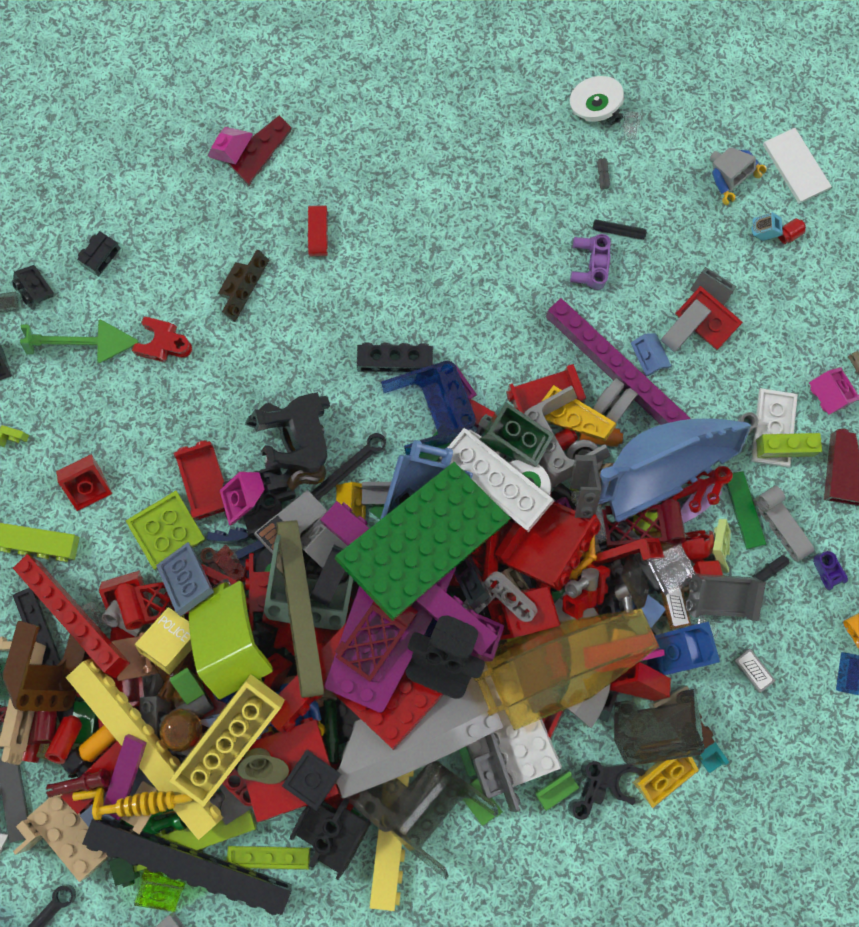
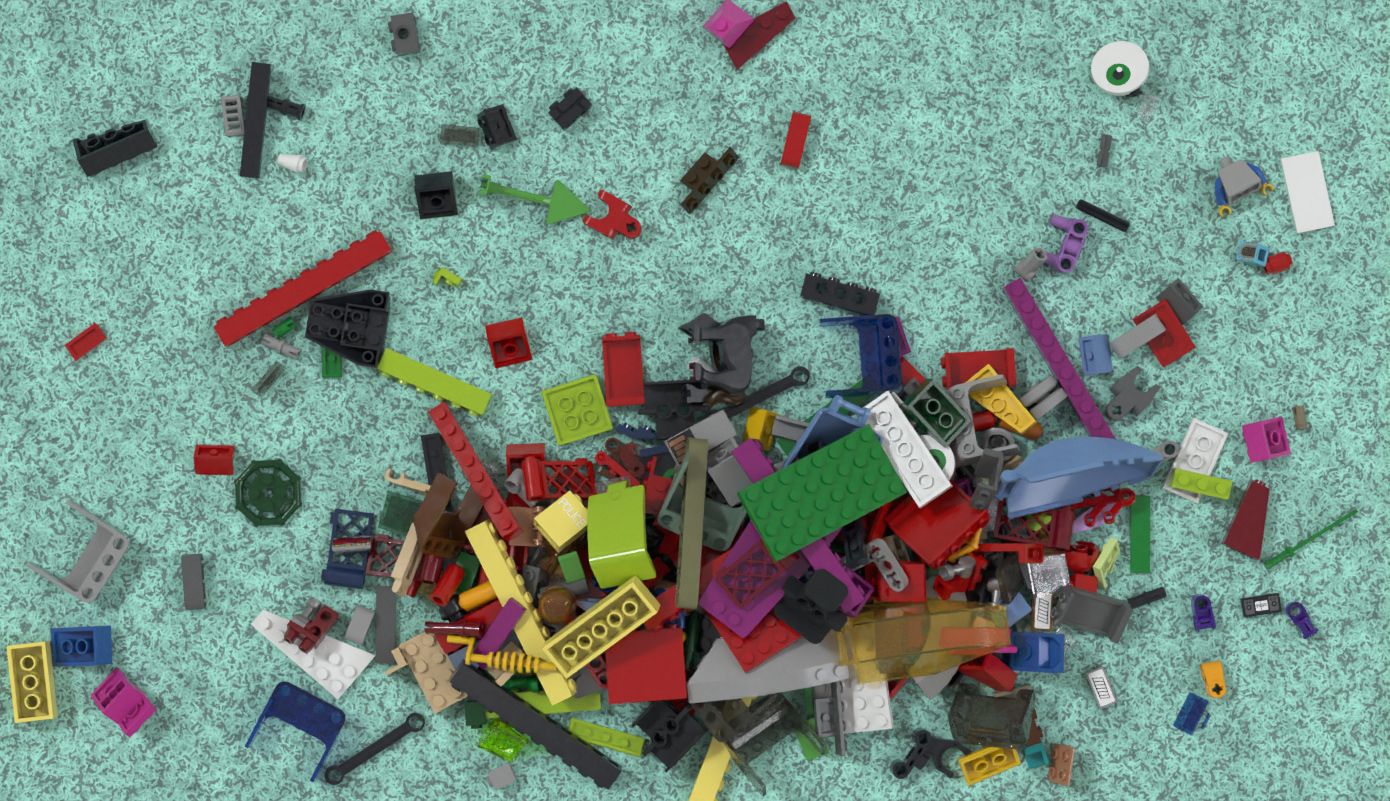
camera: 20 degrees right, 10 degrees up
(184, 579) = (588, 465): sand blue plate -> none
(241, 494) = (659, 400): dark pink slope -> none
(262, 767) = (625, 658): olive piece -> none
(311, 780) = (666, 680): black tile -> none
(328, 579) = (725, 502): black beam -> none
(556, 790) = (884, 747): bright green panel -> none
(565, 287) = (1029, 266): none -> light grey piece
(694, 383) = (1127, 397): none -> dark grey piece
(741, 759) = (1061, 764): none -> nougat hinge
(783, 524) = (1172, 558): light grey beam -> none

